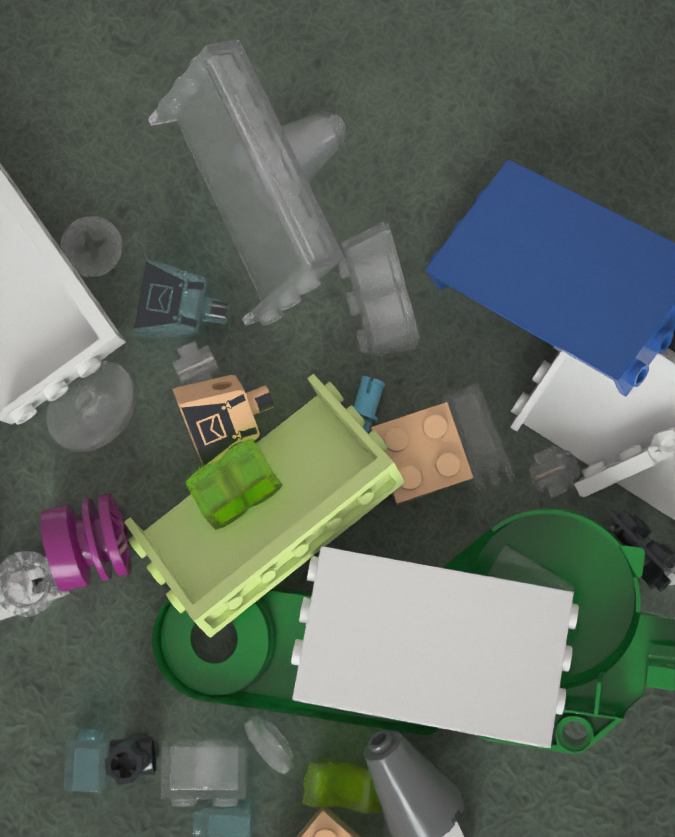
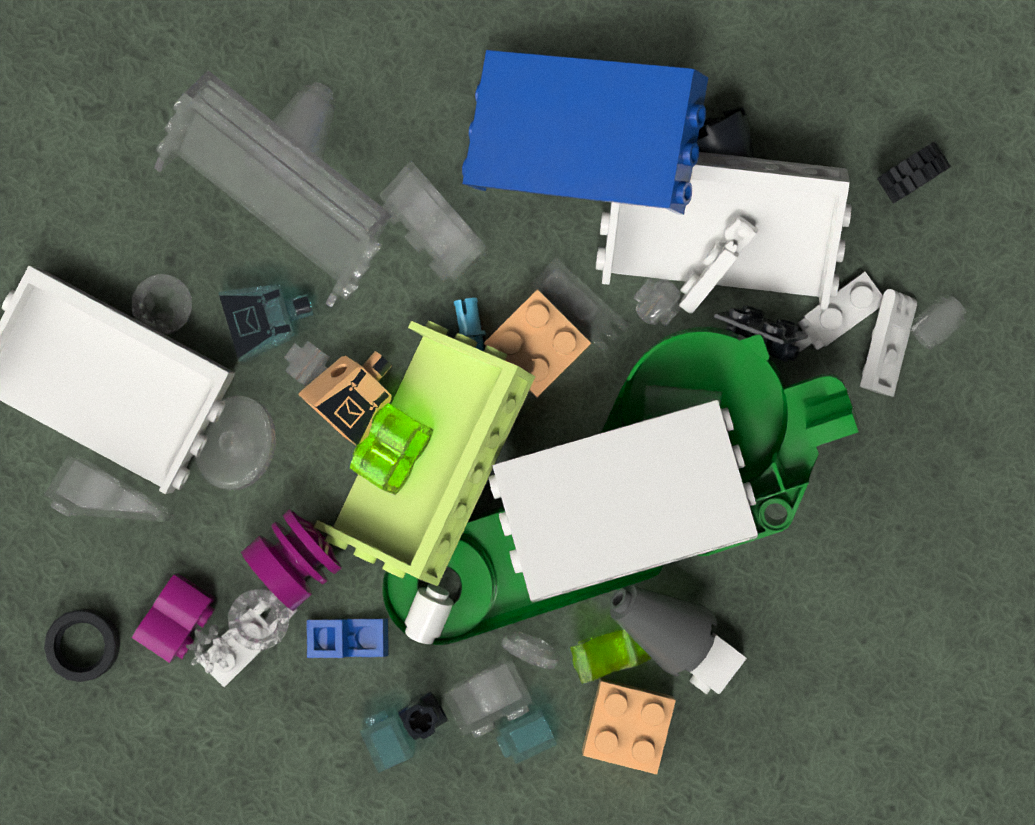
camera: 30 degrees left, 5 degrees up
(103, 643) = (347, 638): none -> slope
(189, 660) = (428, 614): none -> white brick

